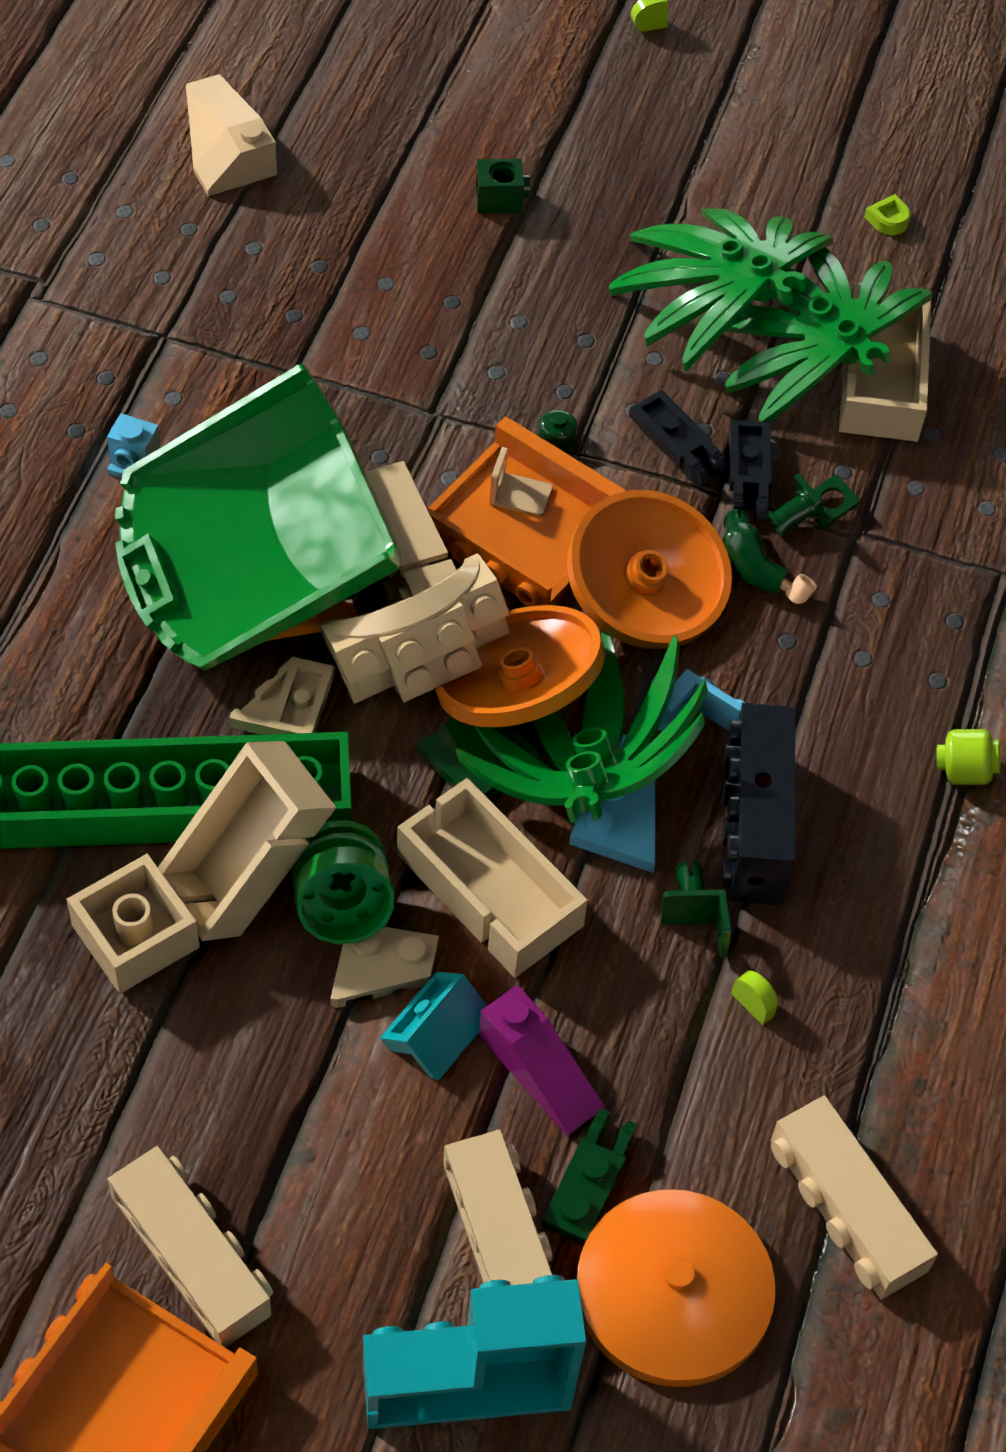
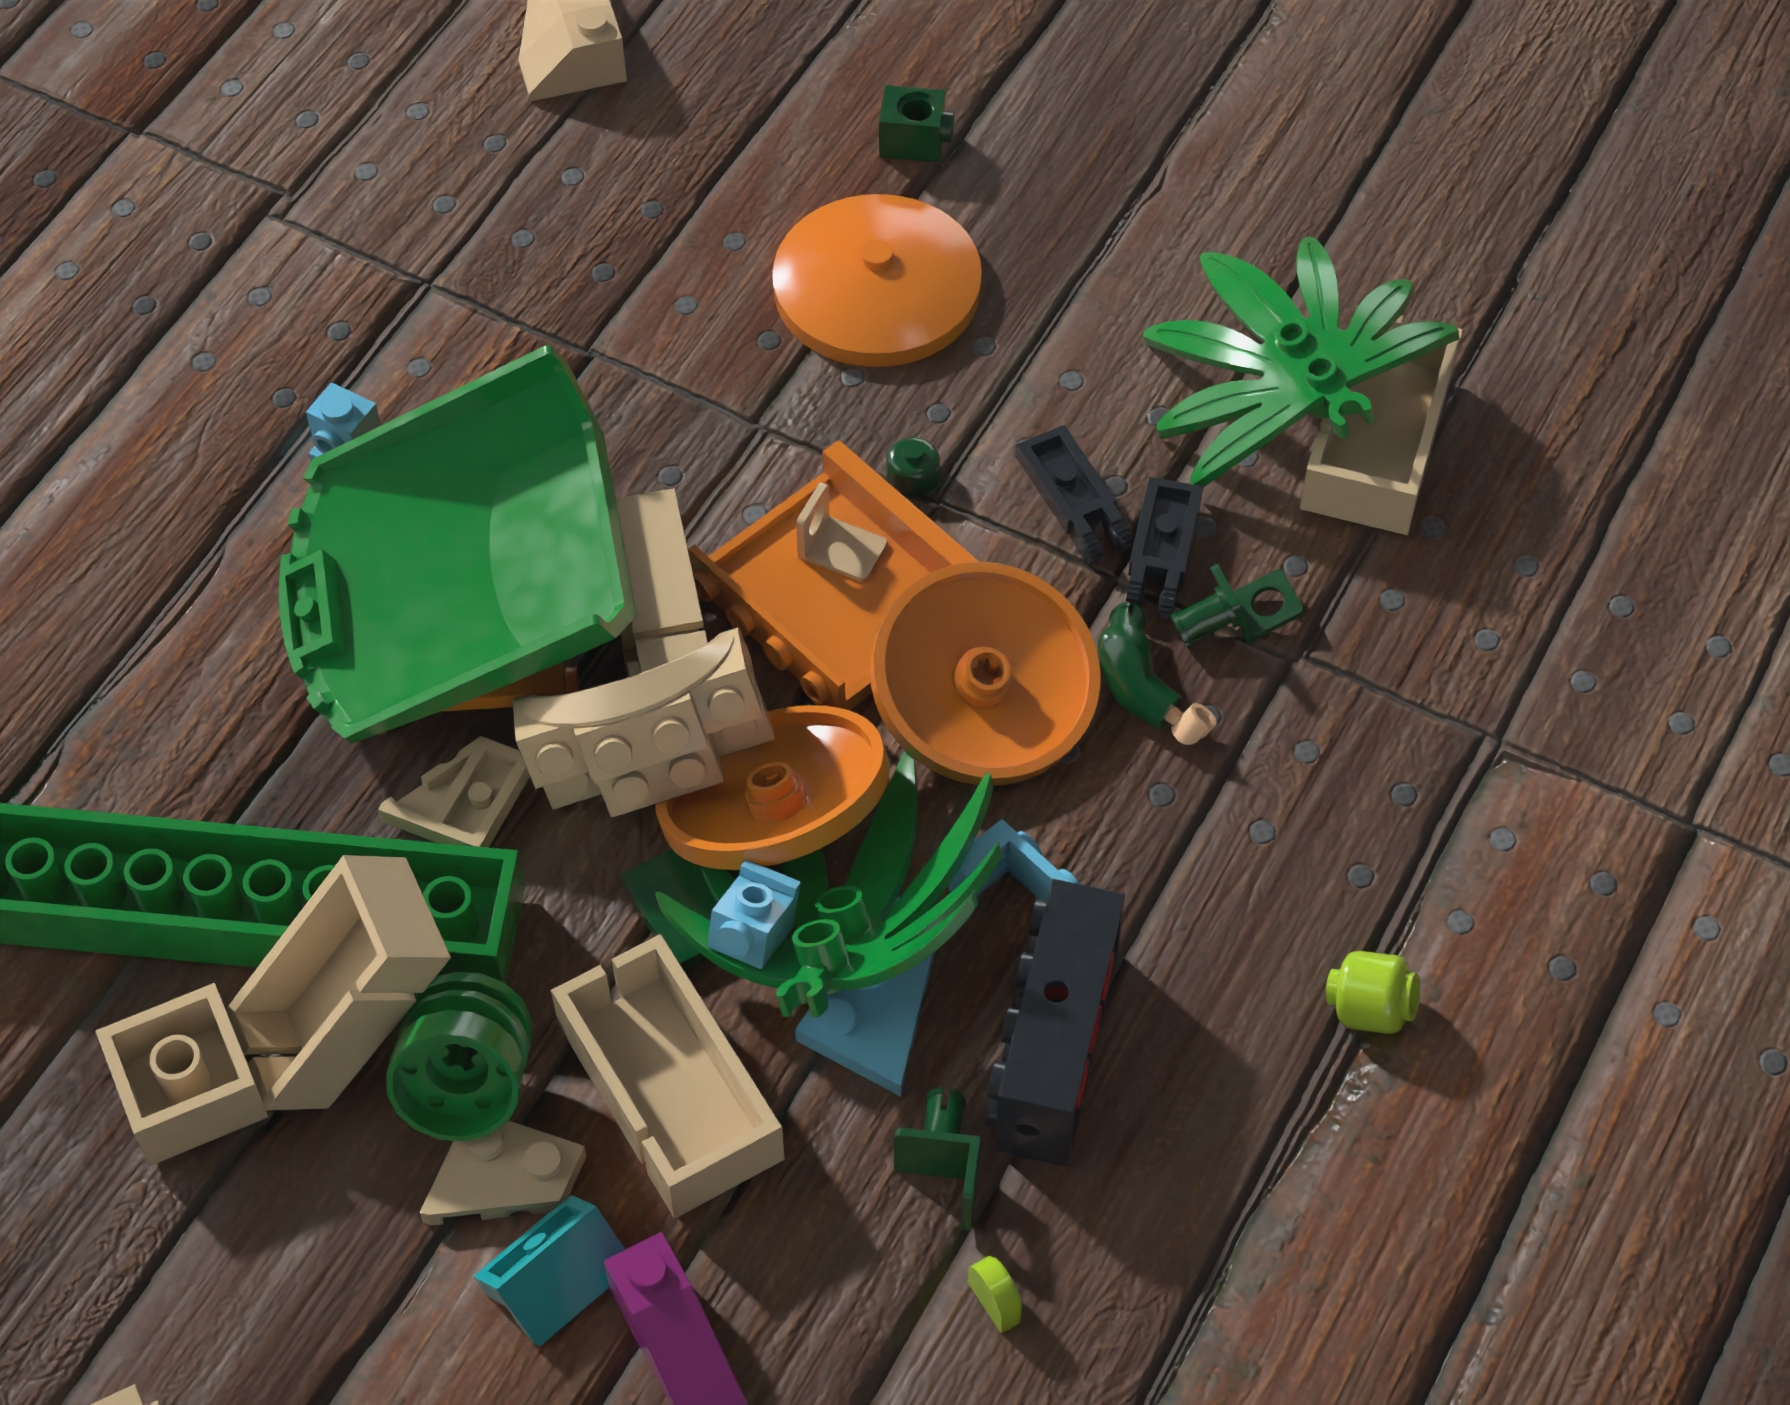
camera: 15 degrees right, 0 degrees up
(498, 301) = (877, 280): none -> orange dish
(531, 755) = (754, 915): none -> medium azure brick
(738, 265) = (1192, 268): green plant -> none
(889, 215) = (1441, 214): lime tile -> none

